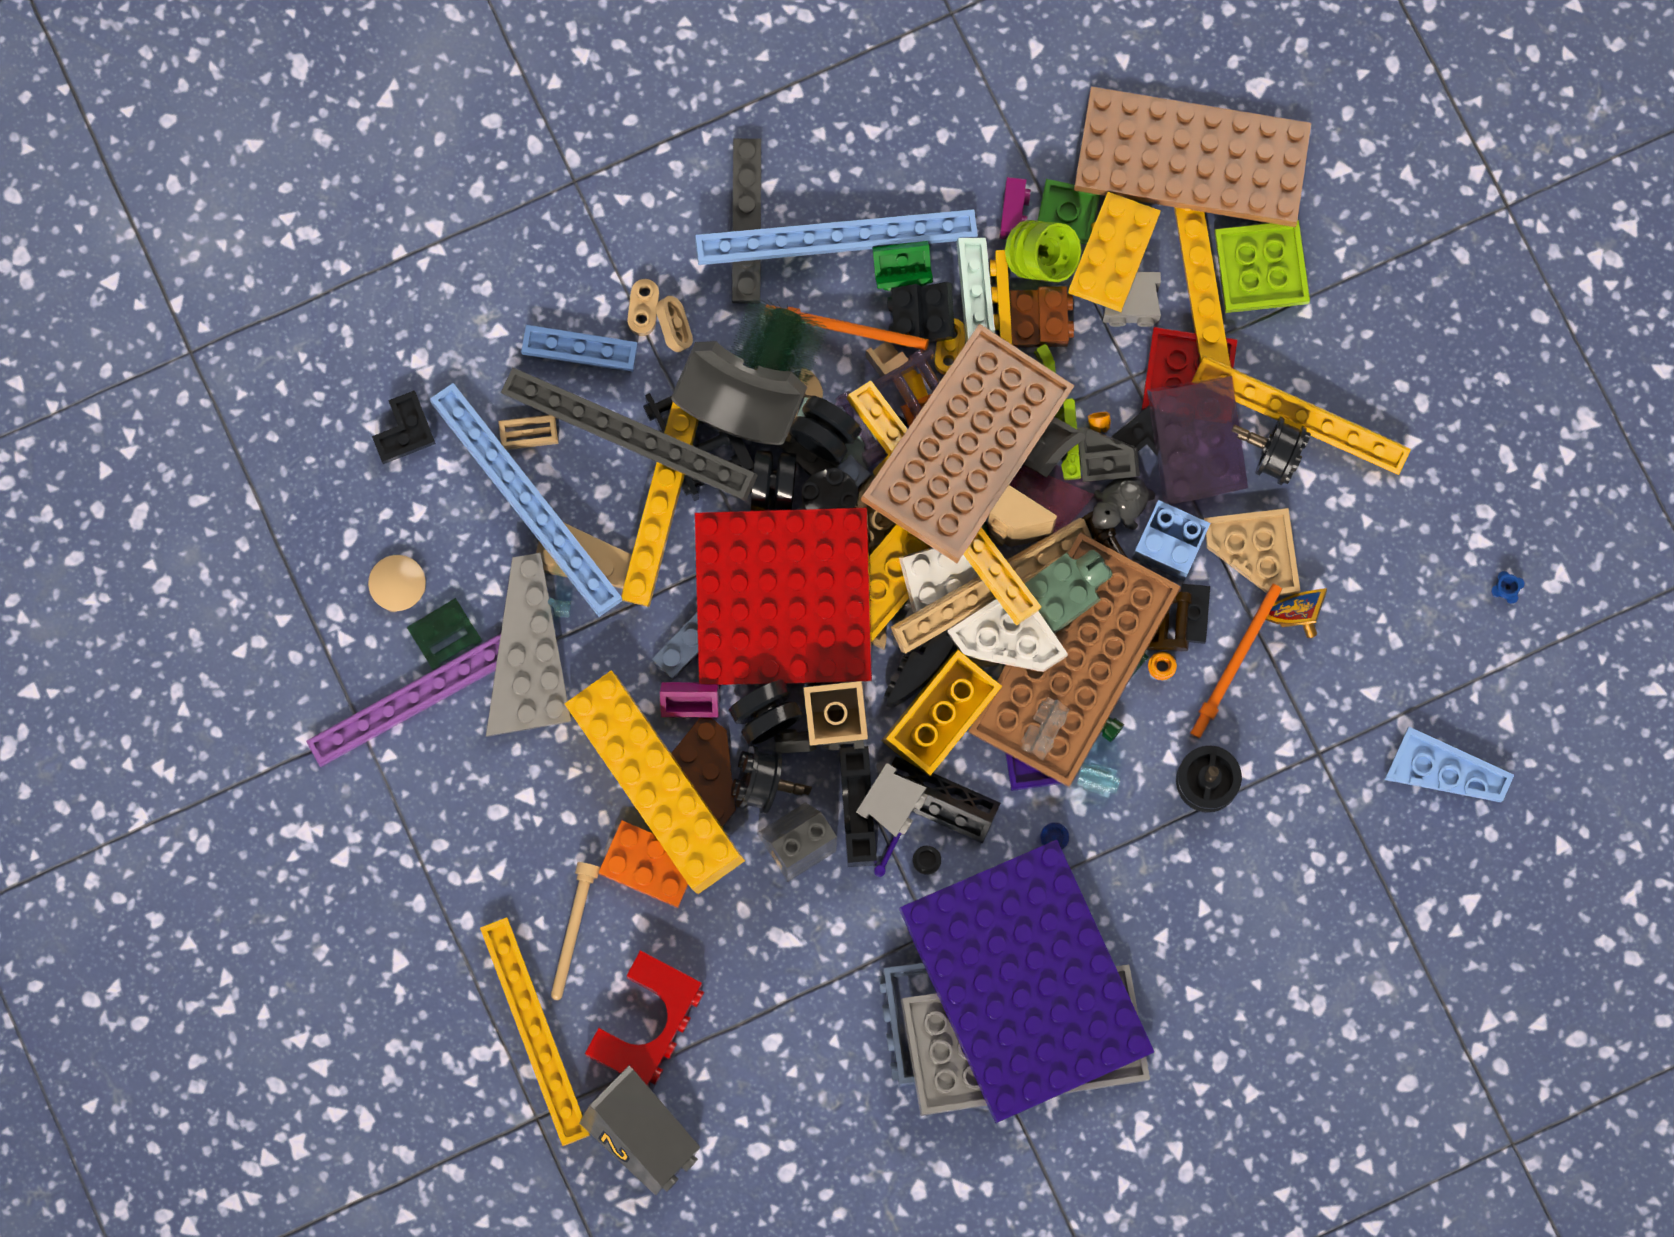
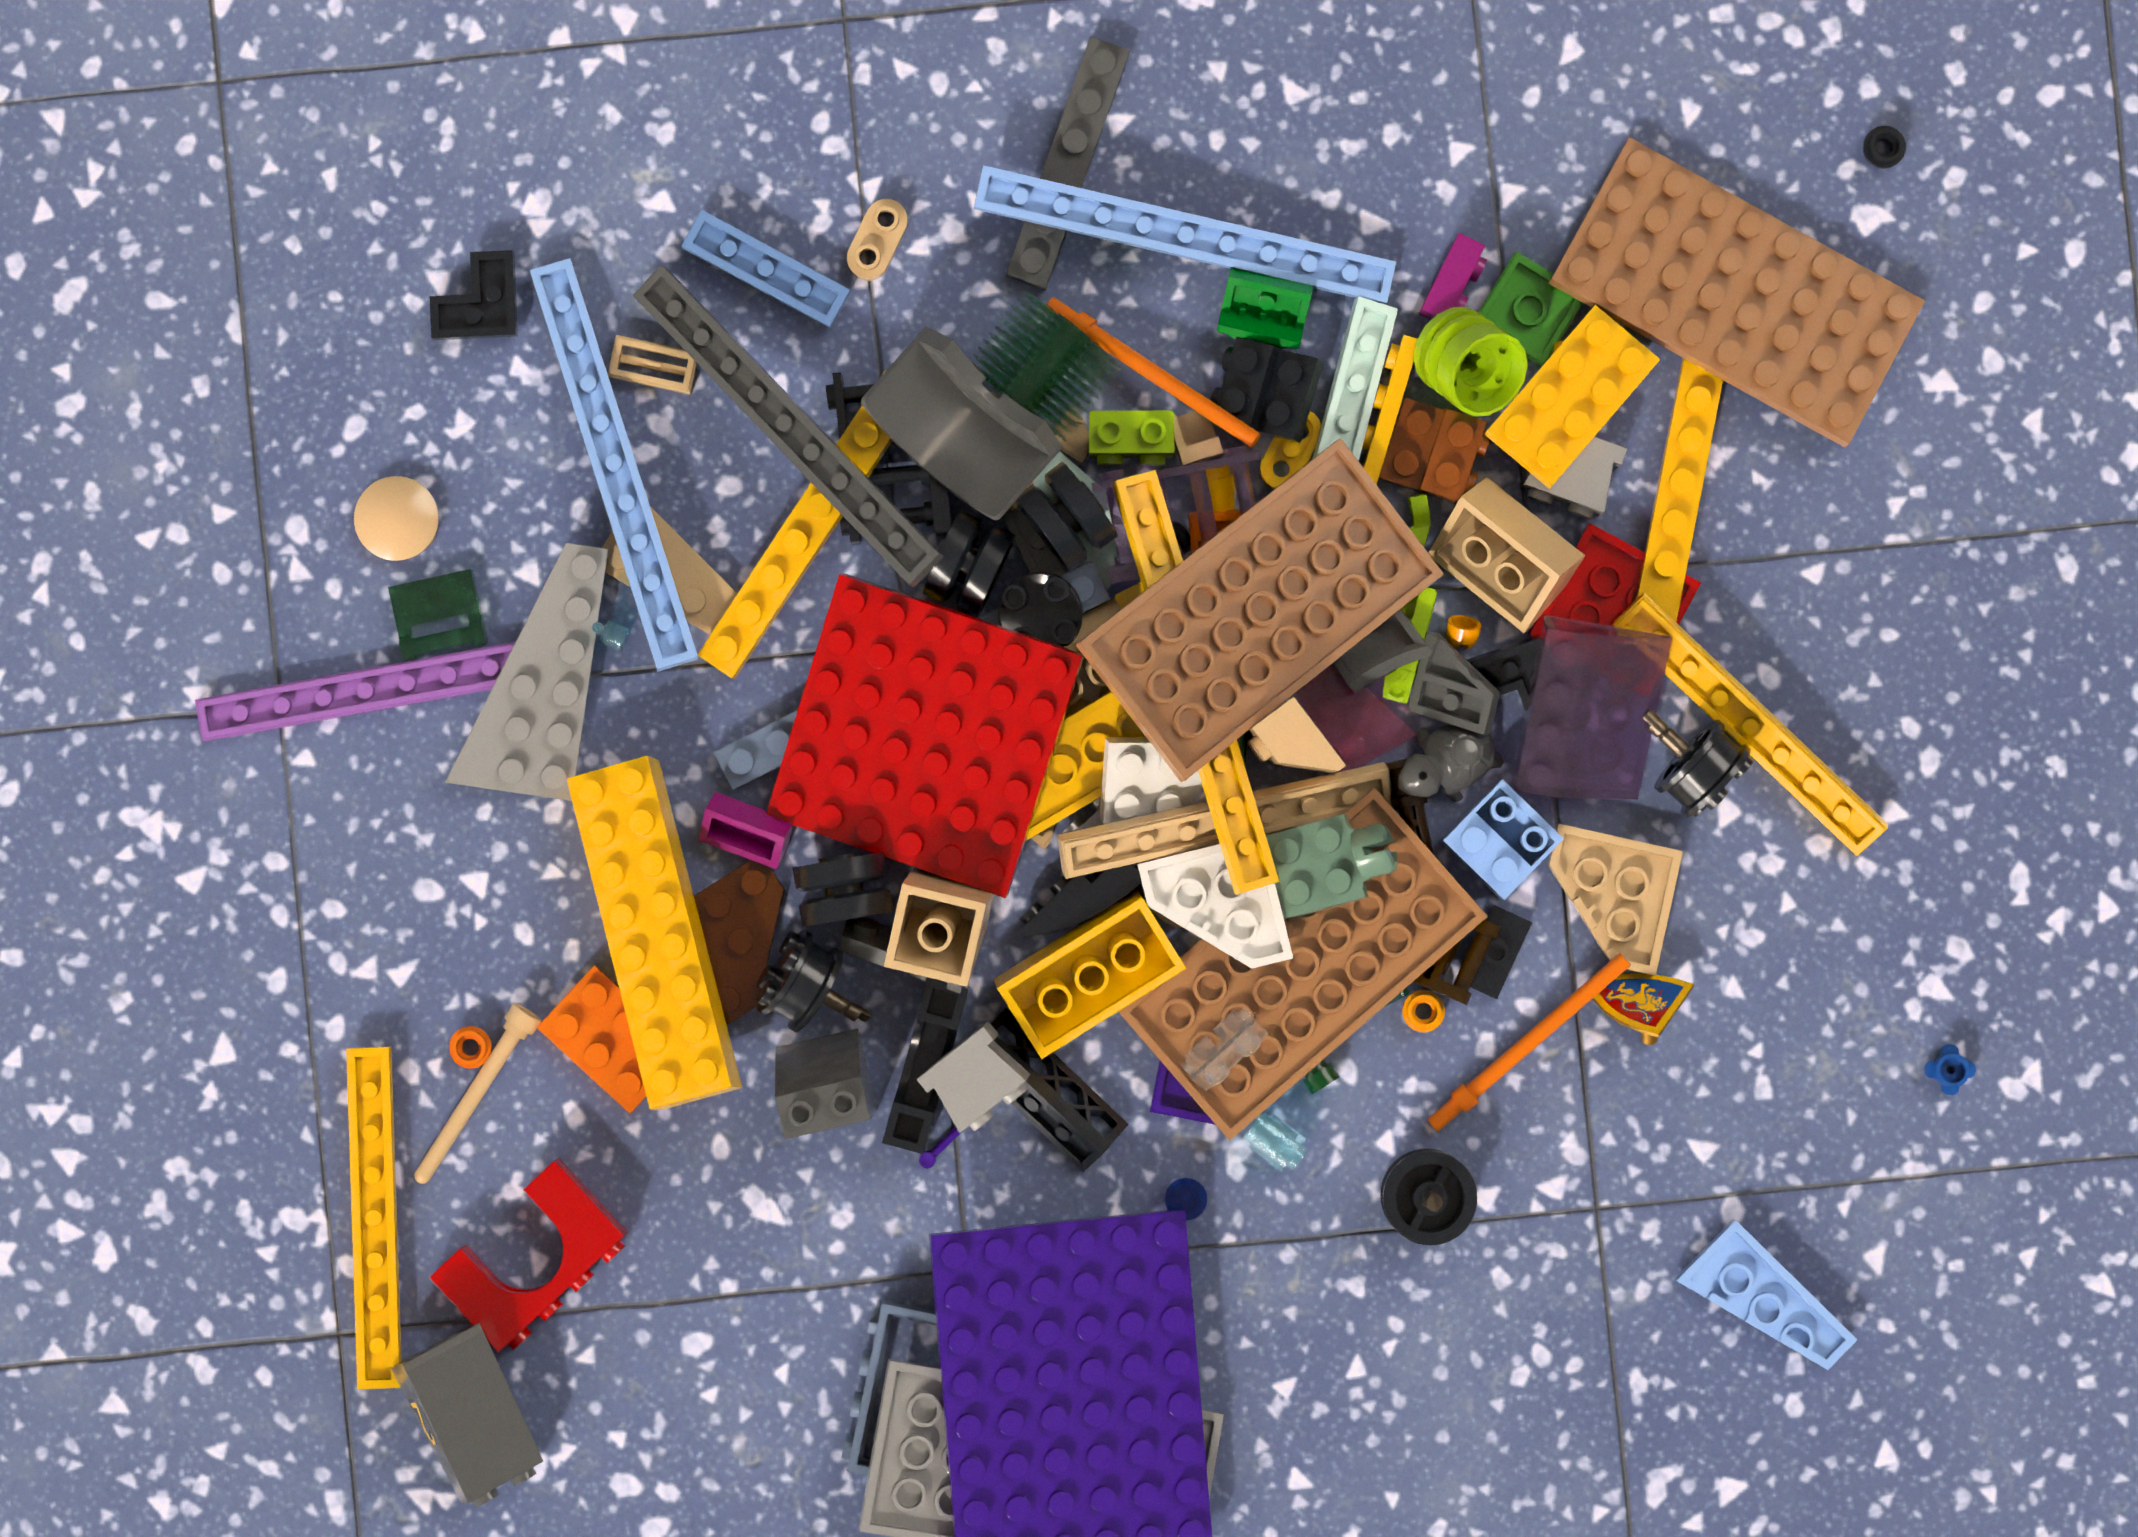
camera: 25 degrees right, 10 degrees up
(553, 894) = (457, 1051): none -> orange plate
(674, 324) = (911, 280): tan plate -> none
(847, 371) = (1131, 435): none -> lime bracket
(926, 860) = (997, 1168): black plate -> none
(1108, 363) = (1505, 554): none -> tan slope
(1254, 33) = (1893, 138): none -> black plate
(1261, 267) = (1775, 488): lime plate -> none

